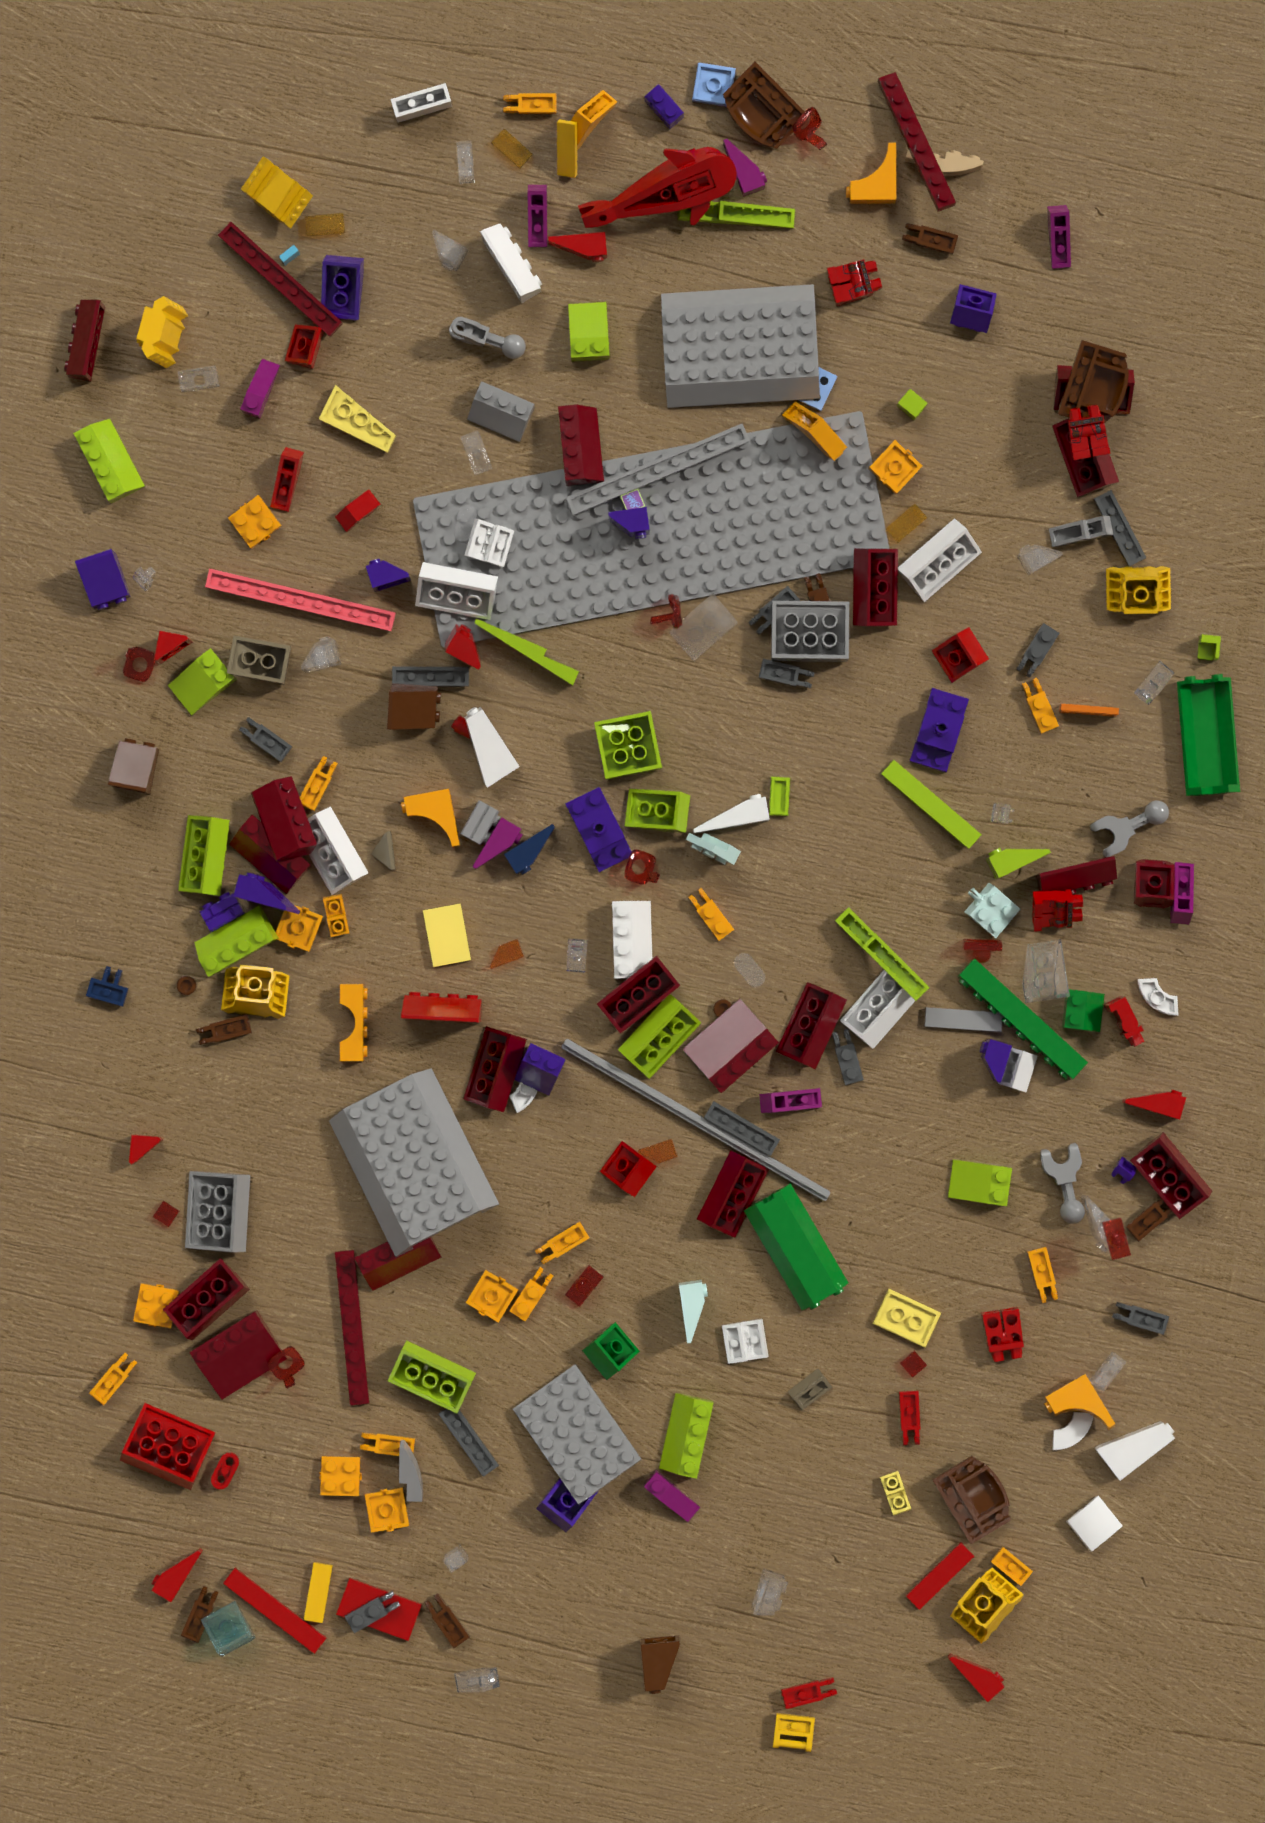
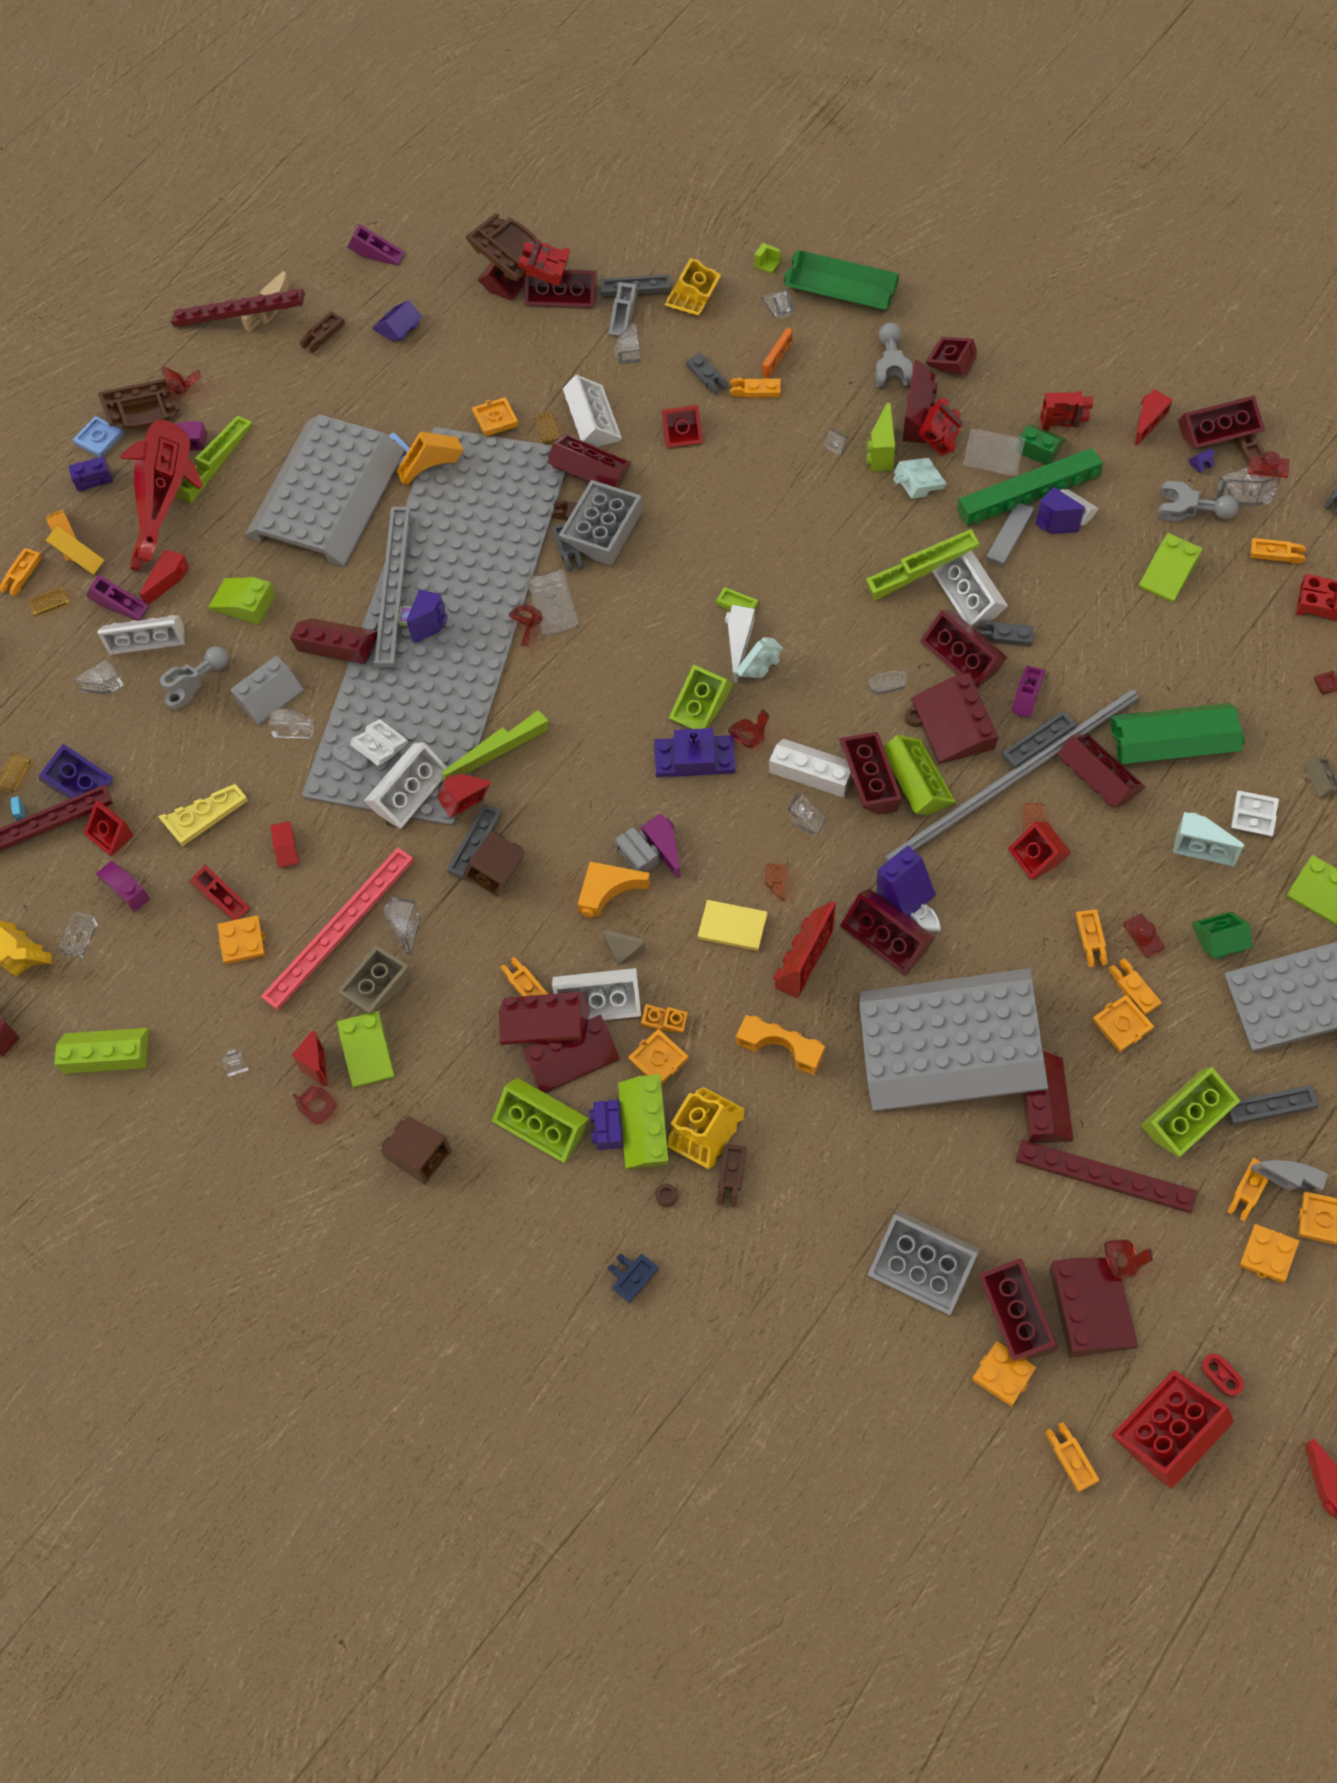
camera: 65 degrees left, 25 degrees down
(103, 579) = (211, 1099): dark purple slope -> none
(141, 1145) = (818, 1312): red slope -> none
(166, 1213) = (904, 1319): clear red tile -> none
(256, 890) = (610, 1068): dark purple slope -> none
(267, 740) = (455, 1013): dark grey hinge -> none
(385, 575) = (357, 837): dark purple slope -> none
(460, 726) = (538, 831): red cone -> none
(465, 155) = (28, 635): clear piece -> none
(490, 750) = (568, 812): white slope -> none
(527, 852) = (687, 821): dark blue slope -> none
(628, 745) = (629, 696): lime slope -> none
(712, 916) = (820, 693): light orange hinge -> none
(783, 673) = (628, 558): dark grey hinge -> none
(852, 281) = (322, 393): red hips -> none
(879, 186) = (257, 352): light orange arch -> none
(906, 1318) = (1280, 672): light yellow tile -> none
(912, 404) = (450, 387): lime panel -> none
(931, 804) = (804, 489): lime slope -> none
(939, 730) = (740, 462): dark purple brick -> none
(982, 948) = (950, 495): clear red tile -> none
(1156, 997) = (1059, 384): white tile -> none
(1182, 907) = (983, 337): magenta slope -> none

